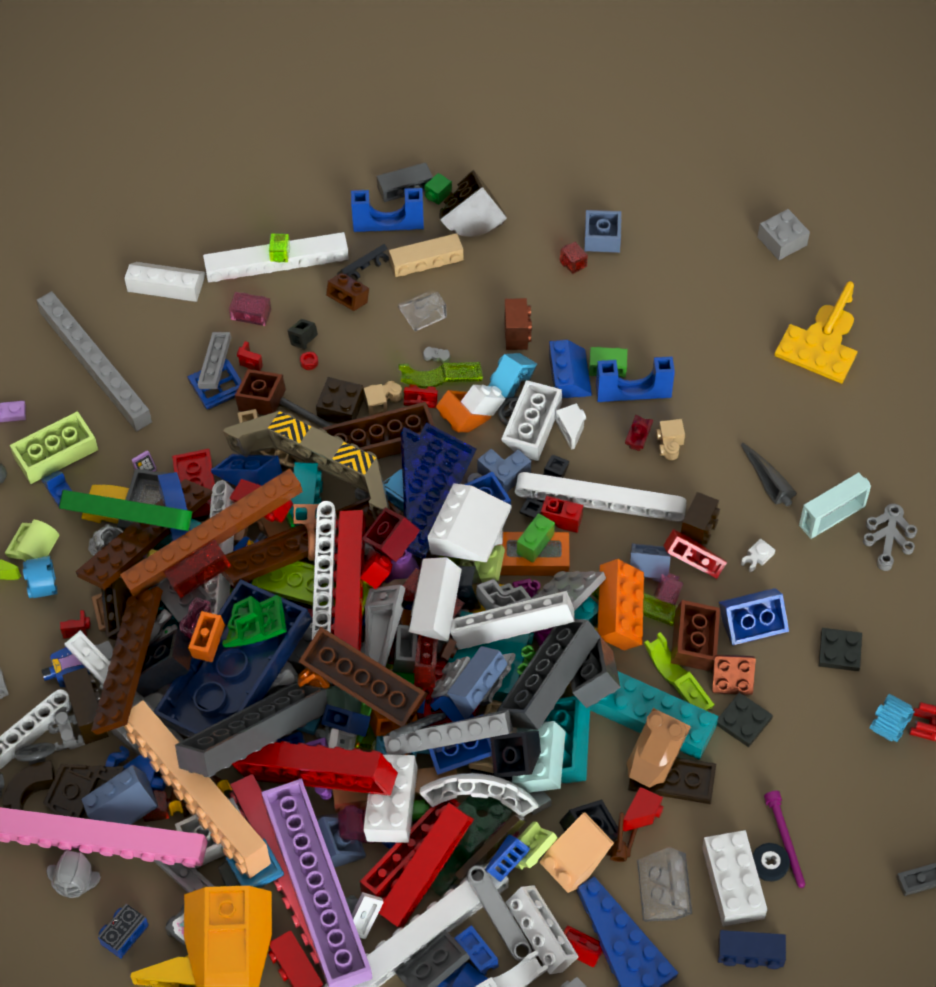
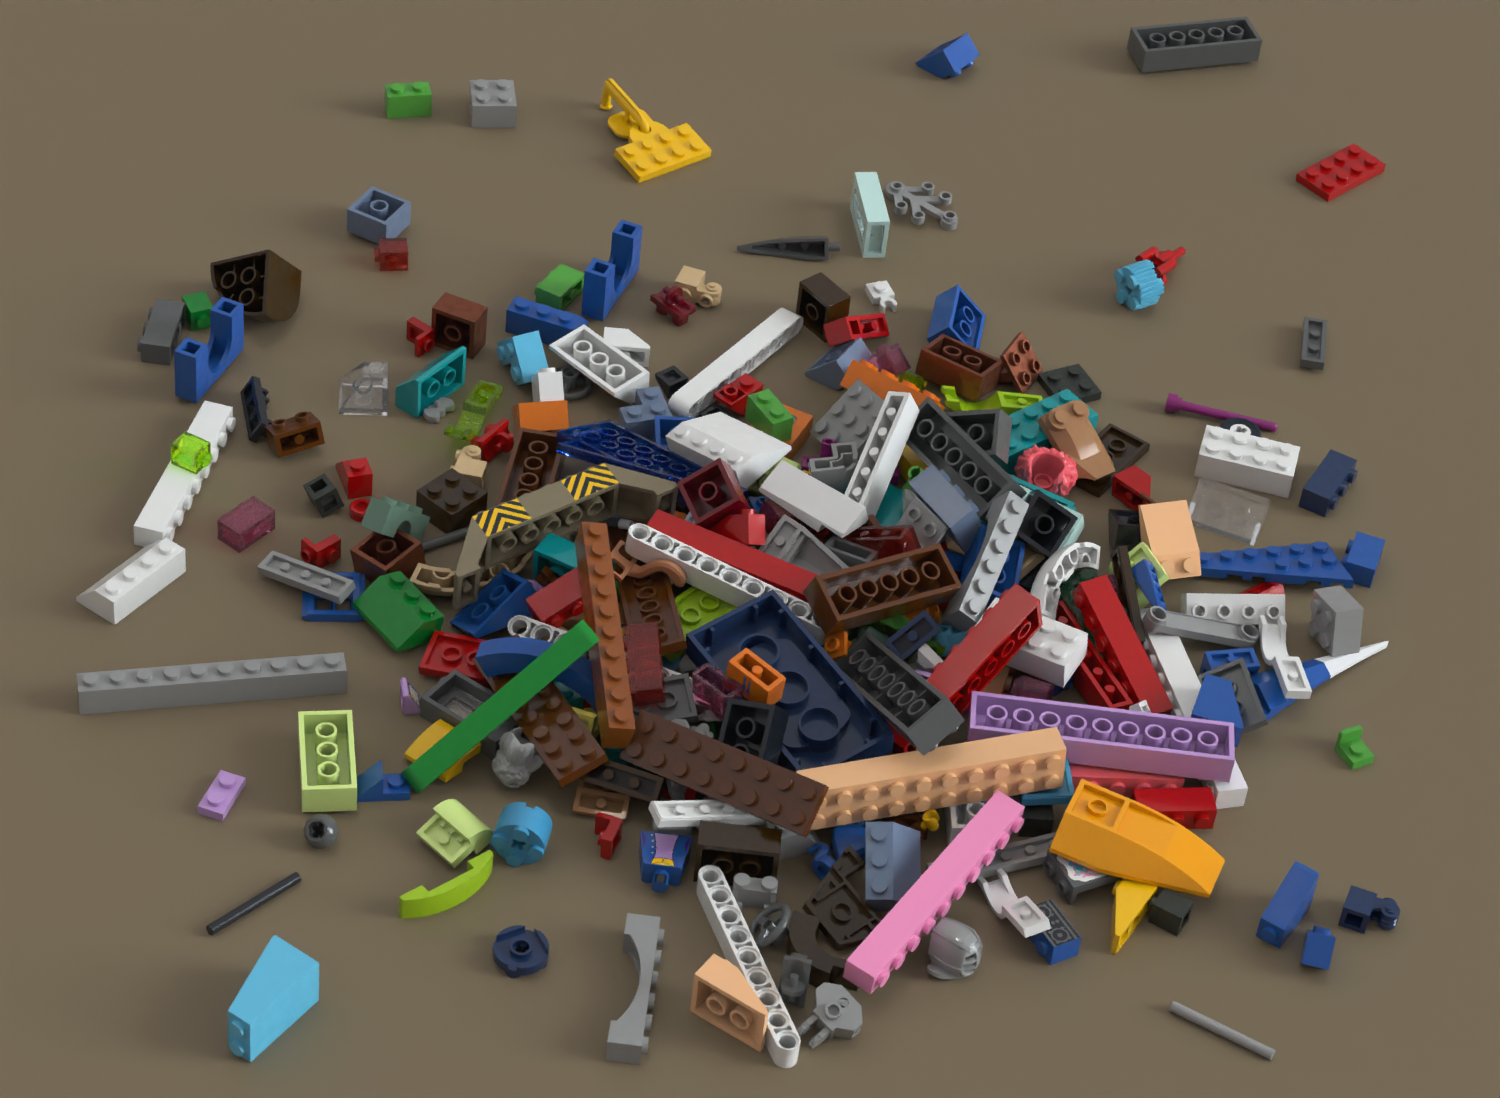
camera: 70 degrees left, 15 degrees down
(115, 899) = (1020, 912): none -> white piece
(211, 420) = (399, 611): none -> green slope
(255, 621) = (761, 631): green slope -> none
(274, 369) = (389, 514): none -> sand green arch
(334, 340) = (355, 477): none -> red slope
(399, 954) = (1218, 703): none -> blue slope
(418, 724) = (970, 575): dark grey sword -> none
(426, 255) = (291, 358): tan brick -> none
(451, 337) = (434, 381): none -> teal slope
(496, 315) = (421, 335): none -> red bracket
(611, 739) = (1047, 469): none -> coral hair
(747, 188) = (407, 100): none -> bright green brick
(840, 649) = (1029, 292): pearl dark grey plate -> none

